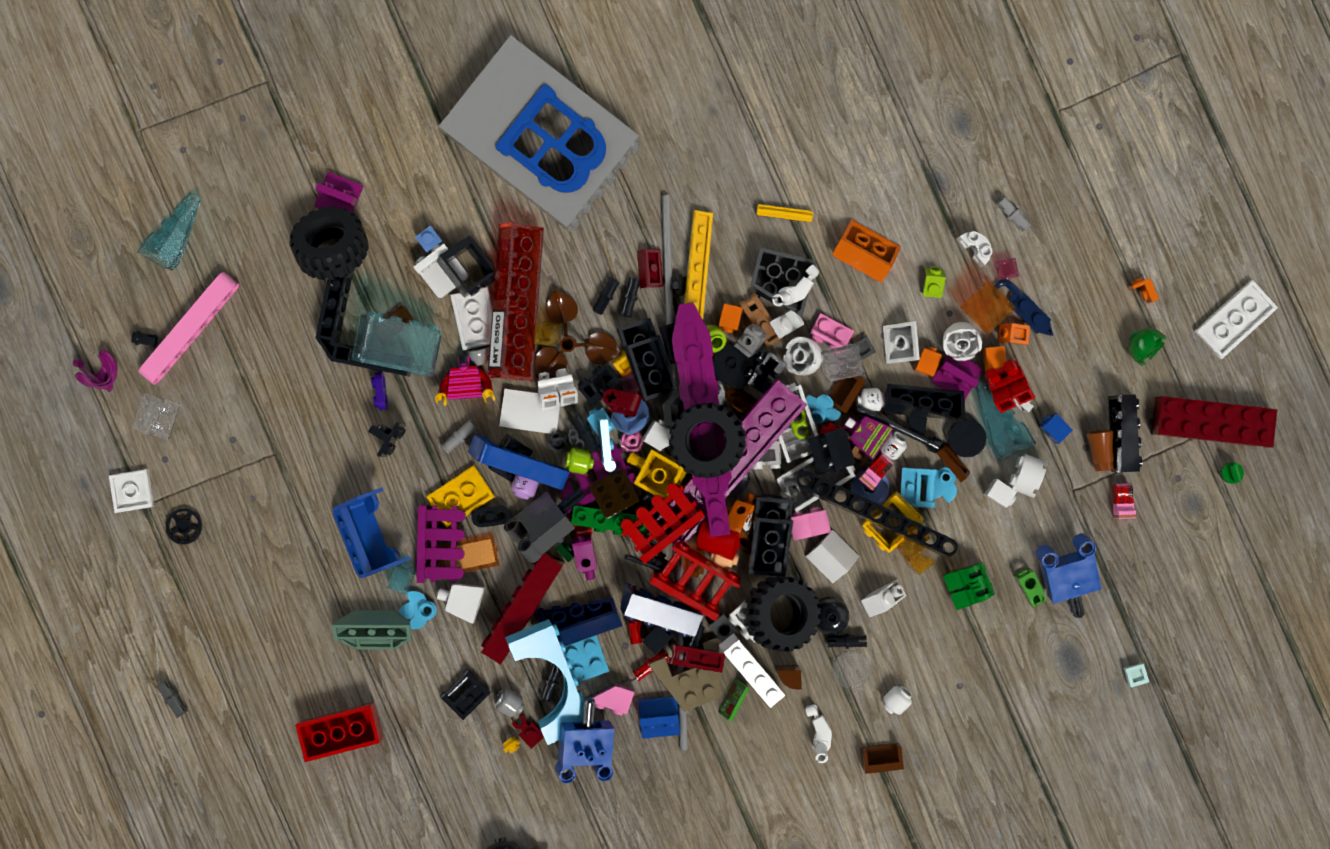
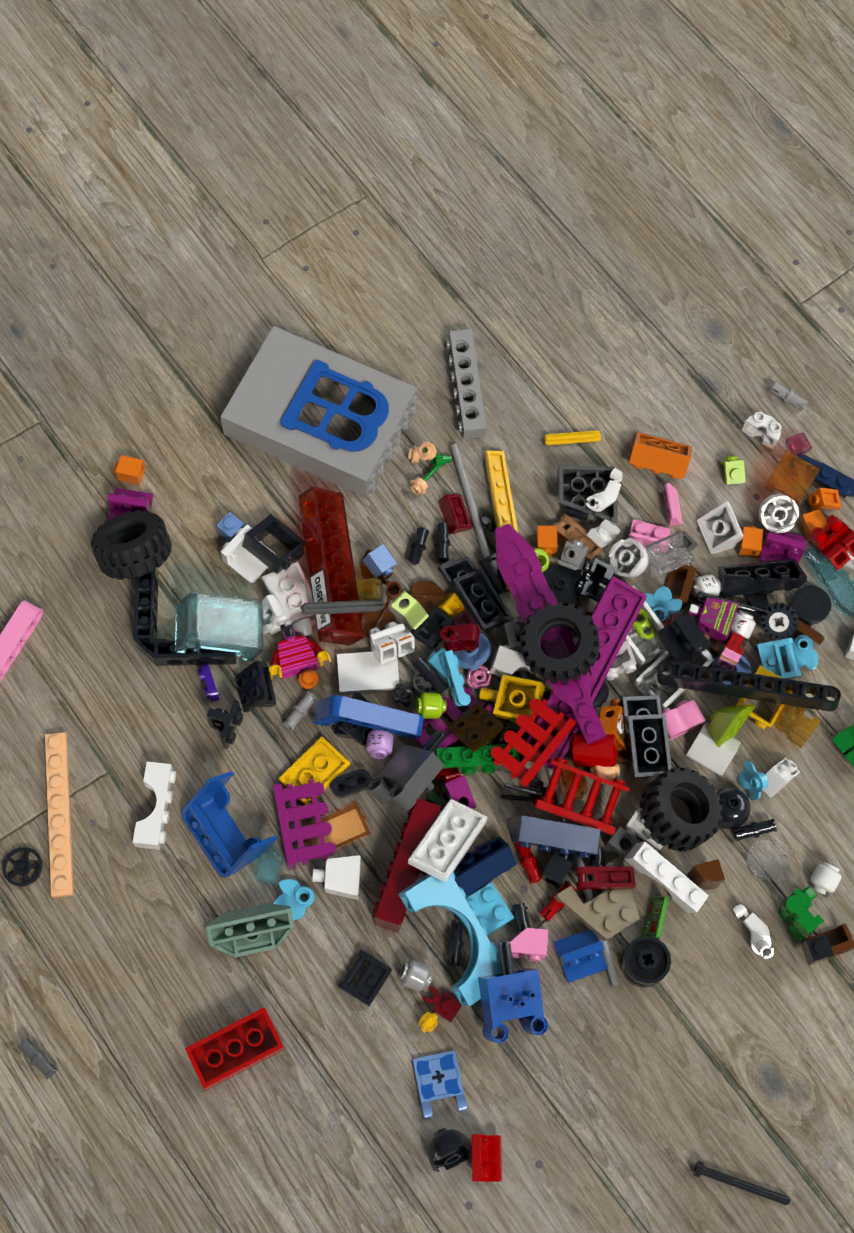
camera: 20 degrees left, 20 degrees down
(223, 485) = (59, 815): none -> light nougat plate
(317, 475) = (150, 831): none -> white arch
(344, 155) = (129, 469): none -> orange brick
(422, 405) = (255, 687): none -> black bracket
(451, 338) = (272, 615): none -> white cylinder
(473, 407) = (308, 679): none -> orange plate
(509, 793) = (439, 1079): none -> medium blue flag
(513, 353) = (341, 607): none -> dark grey axle
(560, 600) = (447, 840): none -> white tile
(564, 308) = (380, 562): none -> medium blue brick
(584, 365) = (412, 611): none -> yellowish green bracket
(615, 671) = (521, 915): none -> black pin
(632, 207) = (426, 452): none -> light nougat plant
(703, 83) = (464, 341): none -> light grey brick
(716, 749) = (654, 953): none -> black wheel
(849, 539) = (728, 722): none -> lime slope
(859, 602) = (752, 780): none -> medium azure plate
(860, 723) = (796, 913): none -> green hips
(863, 306) = (672, 505): none -> bright pink slope
(866, 767) = (817, 949): none -> black brick
(928, 445) = (783, 615): none -> black wheel

